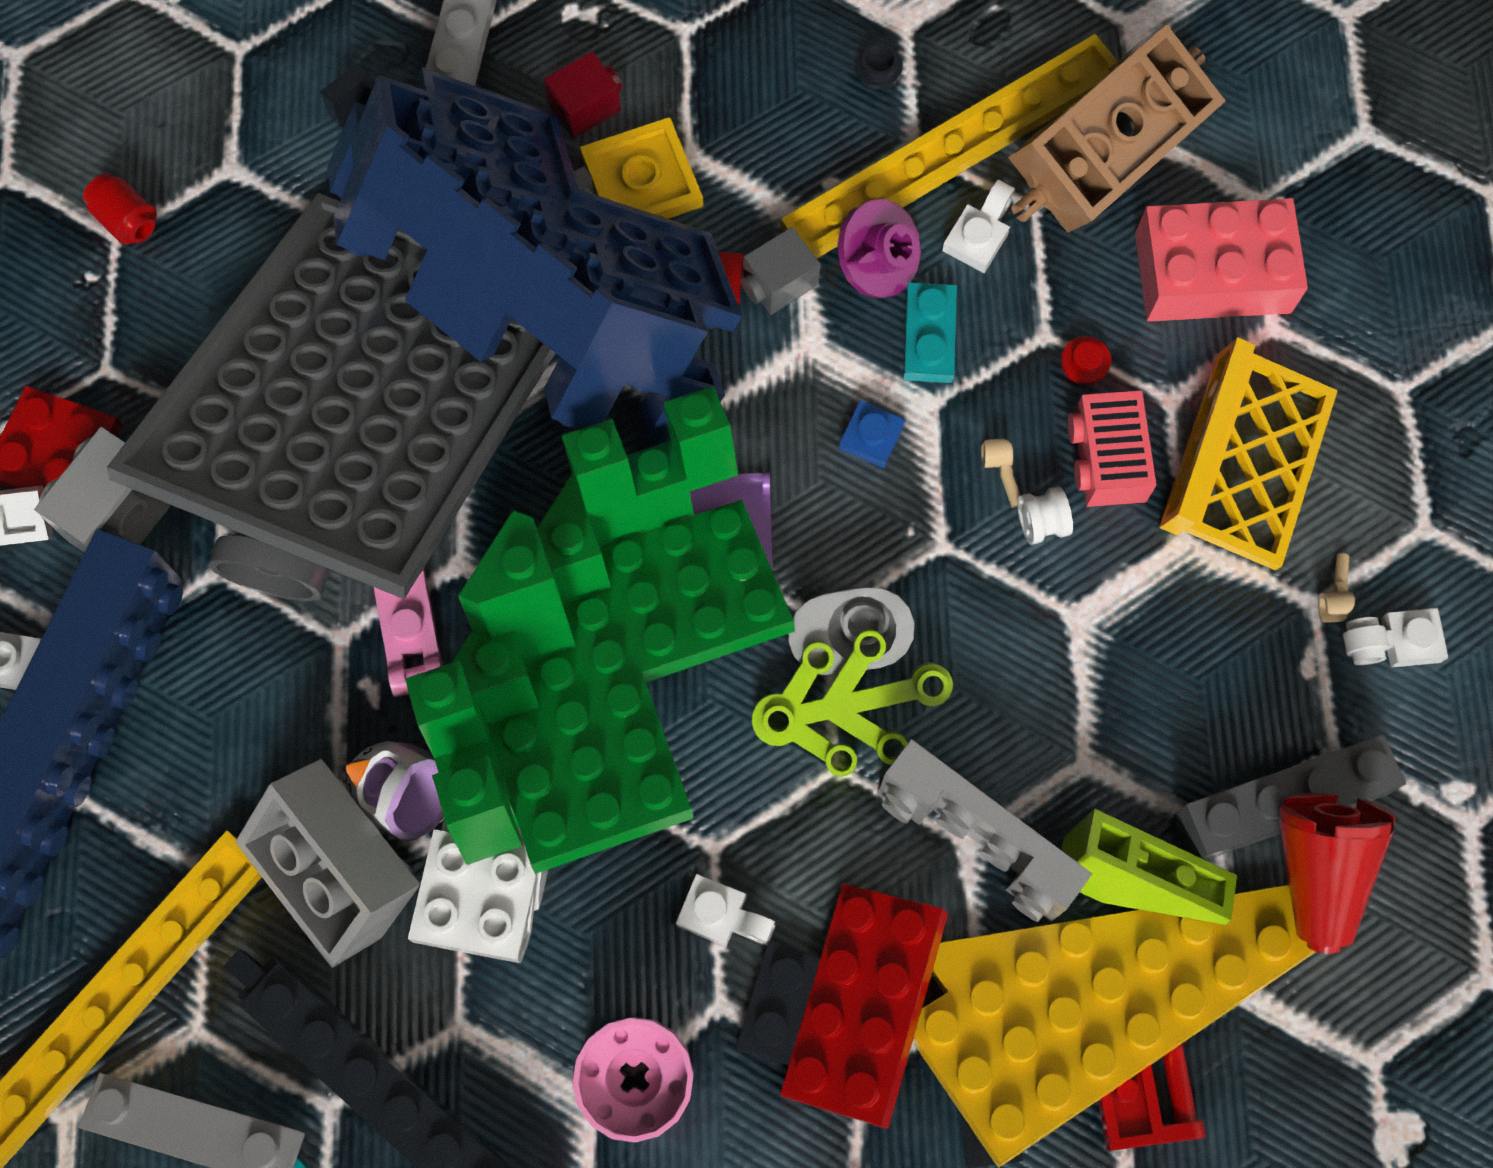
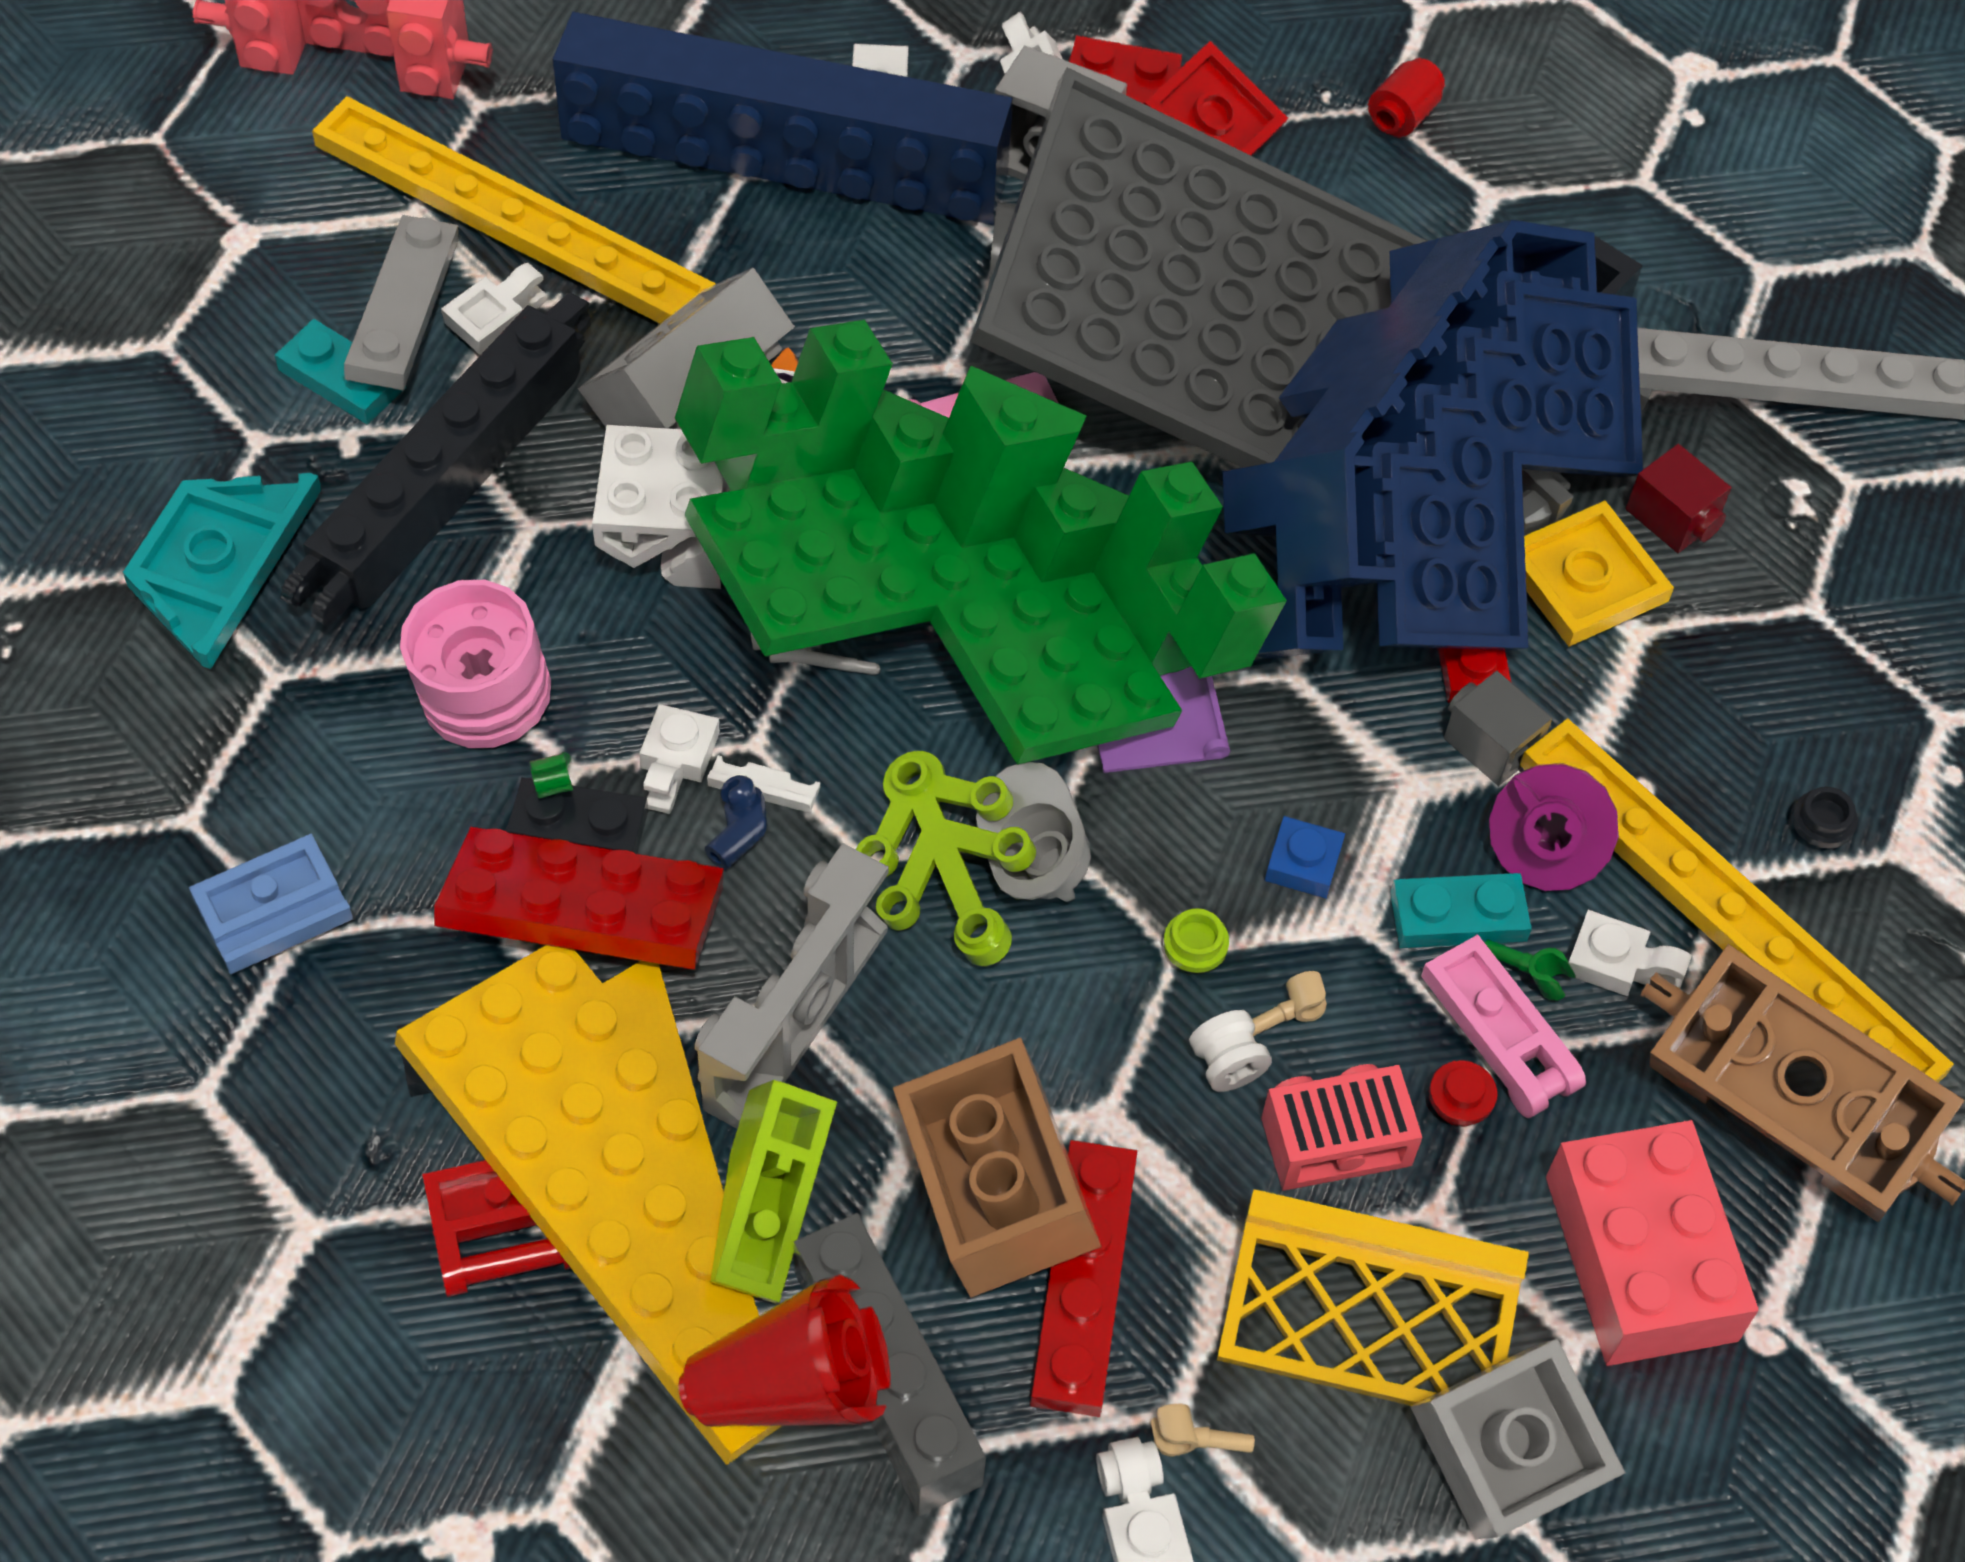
camera: 80 degrees right, 15 degrees down
(110, 370) = (1219, 101): none -> red plate
(216, 1047) = (488, 309): none -> white plate
(752, 1019) = (551, 774): none -> green hand
(755, 845) = (774, 784): none -> white piece
(797, 862) = (744, 818): none -> dark blue arm
(941, 526) = (1196, 941): none -> lime plate
(981, 295) = (1540, 966): none -> green hand
(1033, 322) = (1503, 1025): none -> bright pink plate
(1152, 697) = (995, 1168): none -> medium nougat brick
(1213, 651) = (1085, 1288): none -> red plate
(1373, 375) = (1517, 1440): none -> light grey brick

